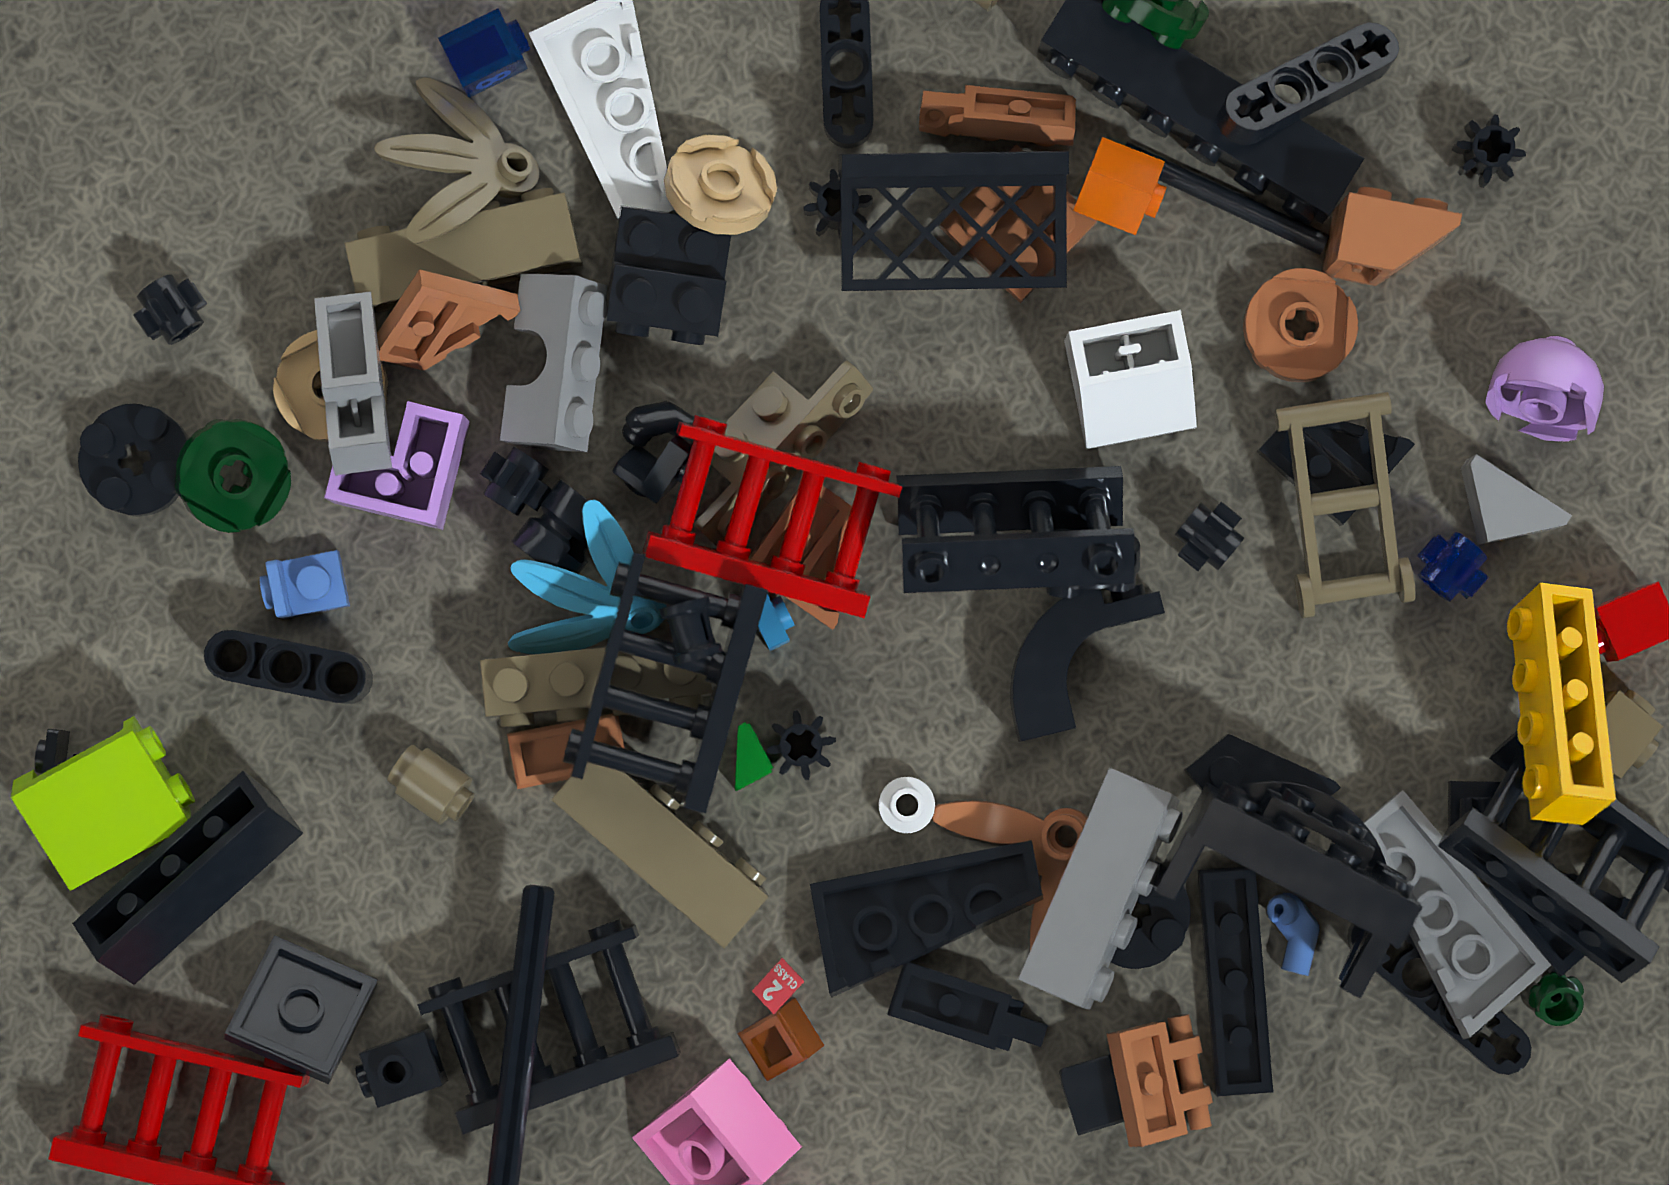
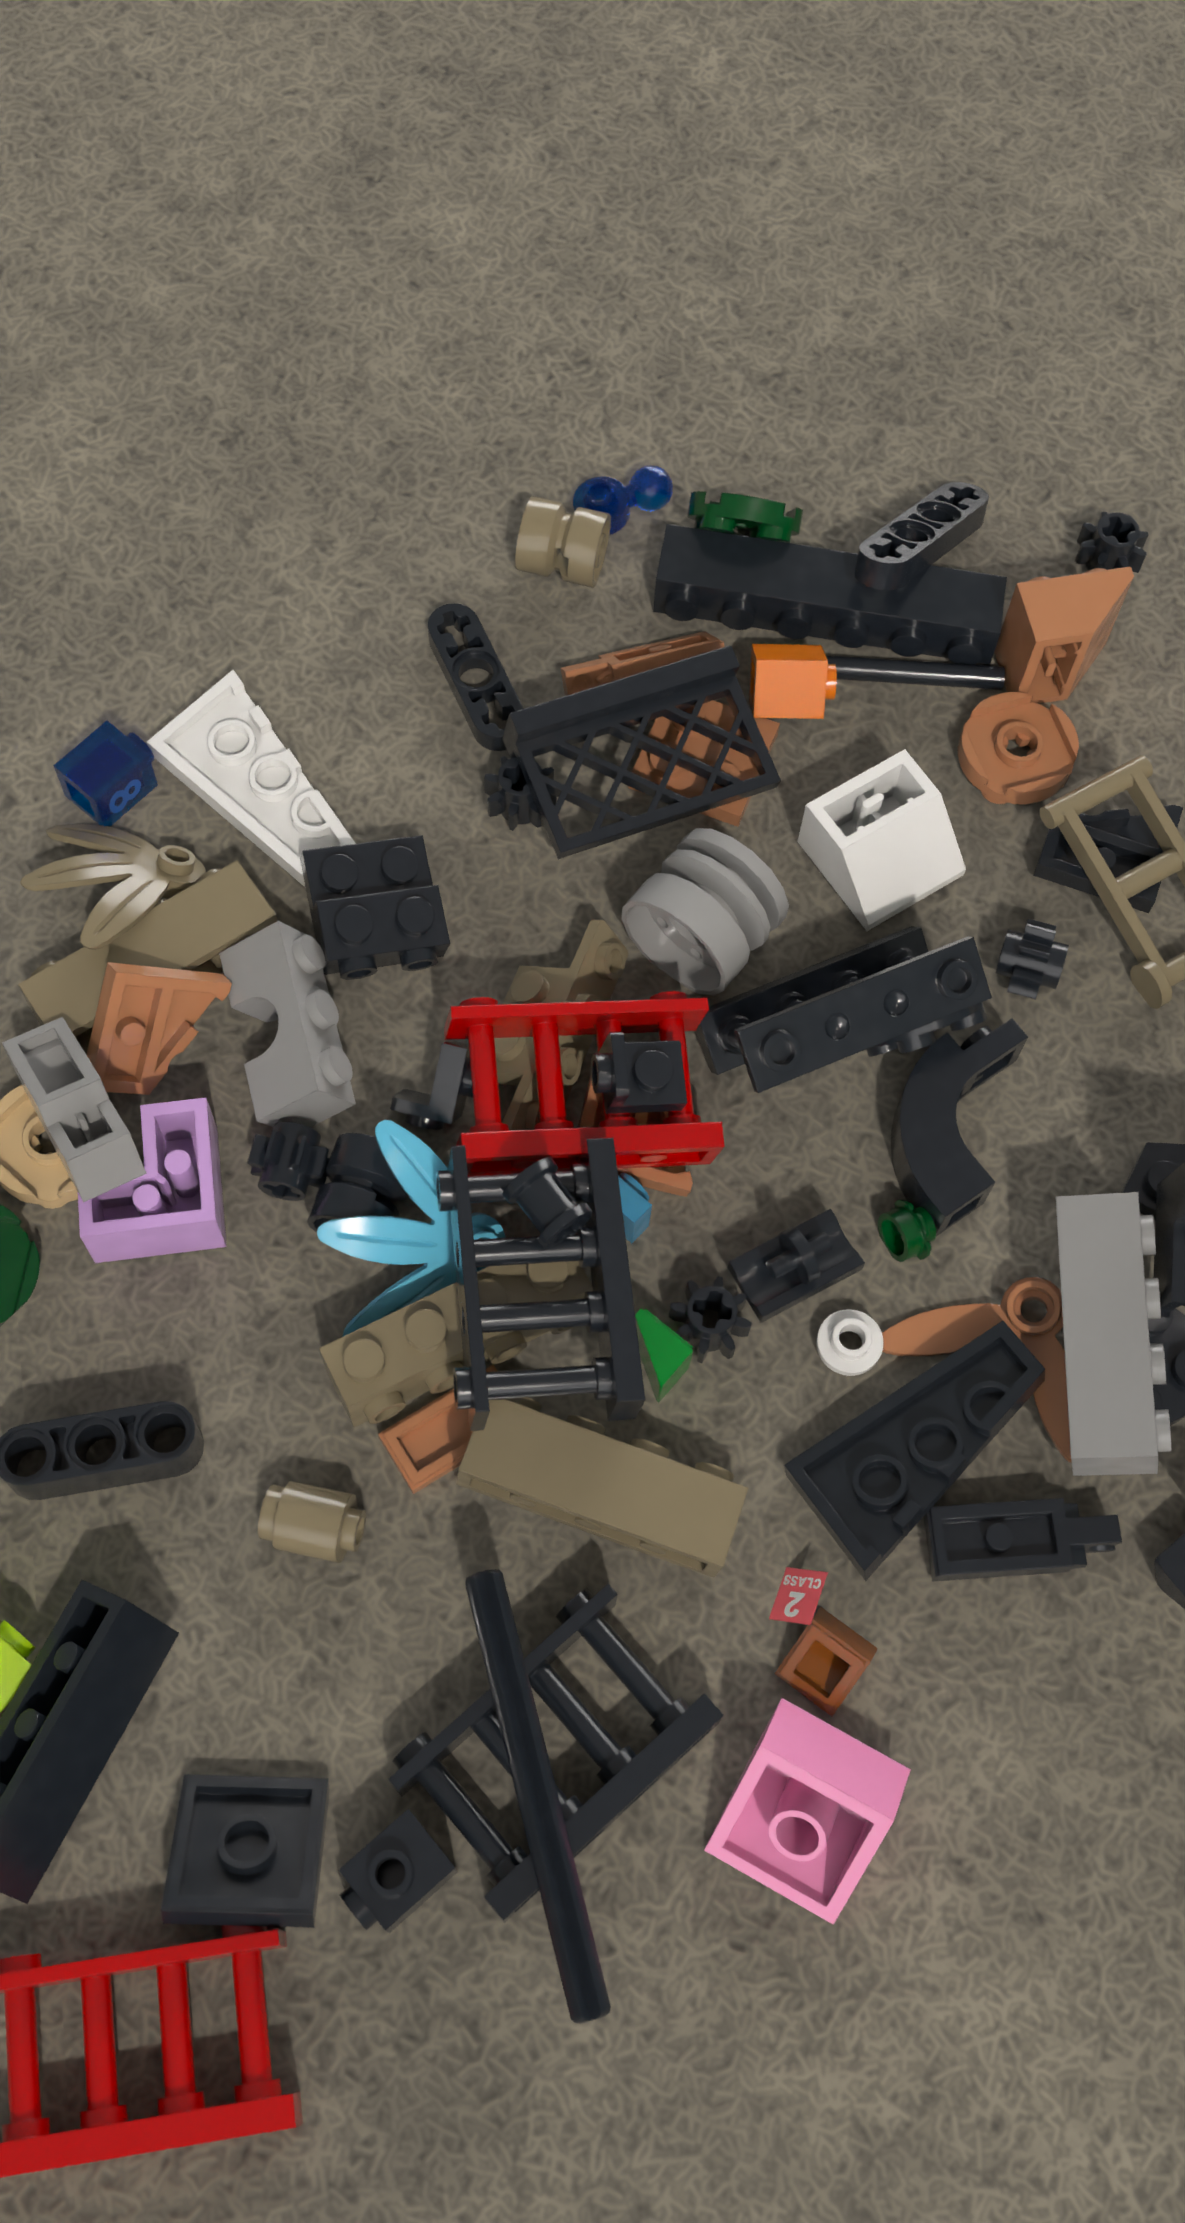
camera: 25 degrees left, 20 degrees down
(304, 585) = (90, 1359): medium blue bracket -> none
(653, 420) = (410, 1055): black arm -> none
(720, 185) = (394, 811): tan tile -> none
(817, 535) = (639, 1075): none -> black bracket
(887, 730) = (795, 1265): none -> black hips
(943, 393) = (705, 911): none -> light grey wheel
(994, 732) = (913, 1225): none -> dark green plate

